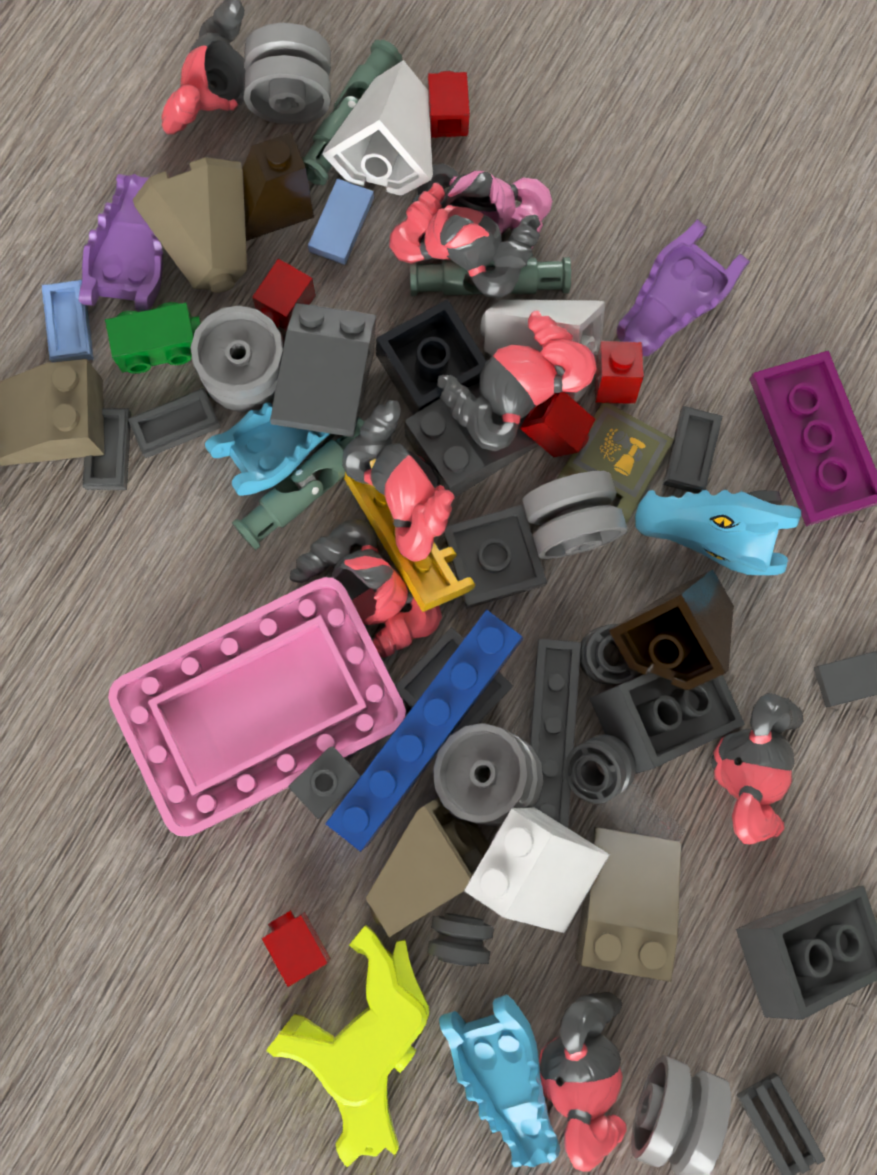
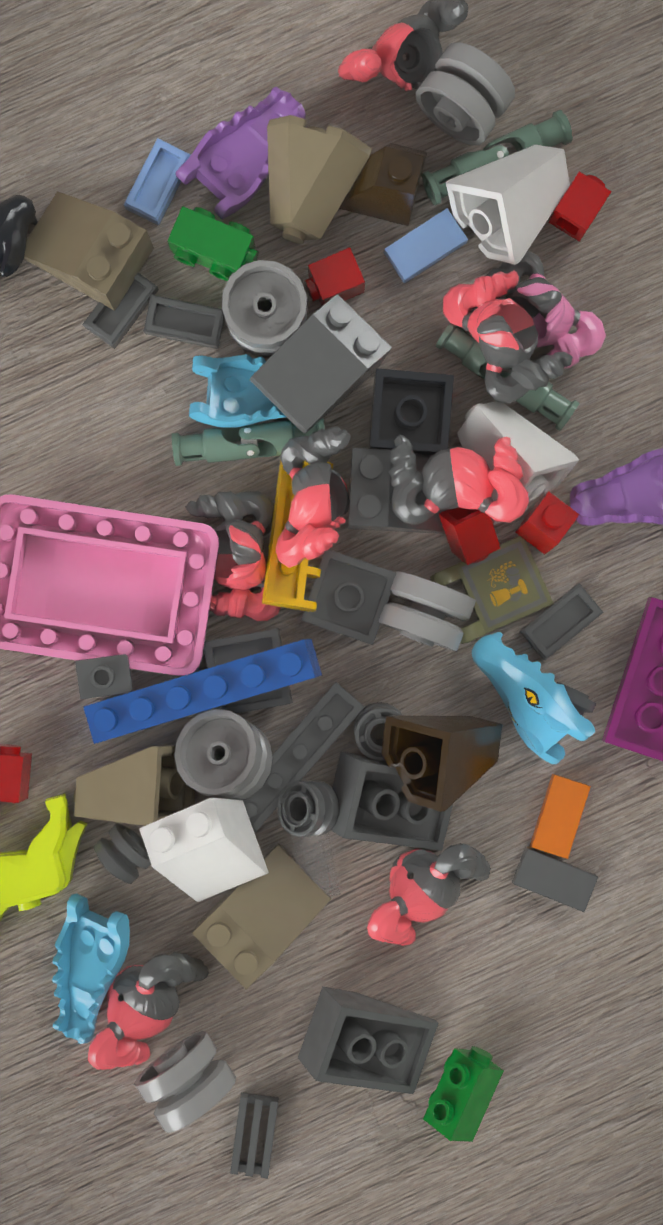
camera: 35 degrees right, 10 degrees up
(822, 617) = (560, 816): none -> orange tile

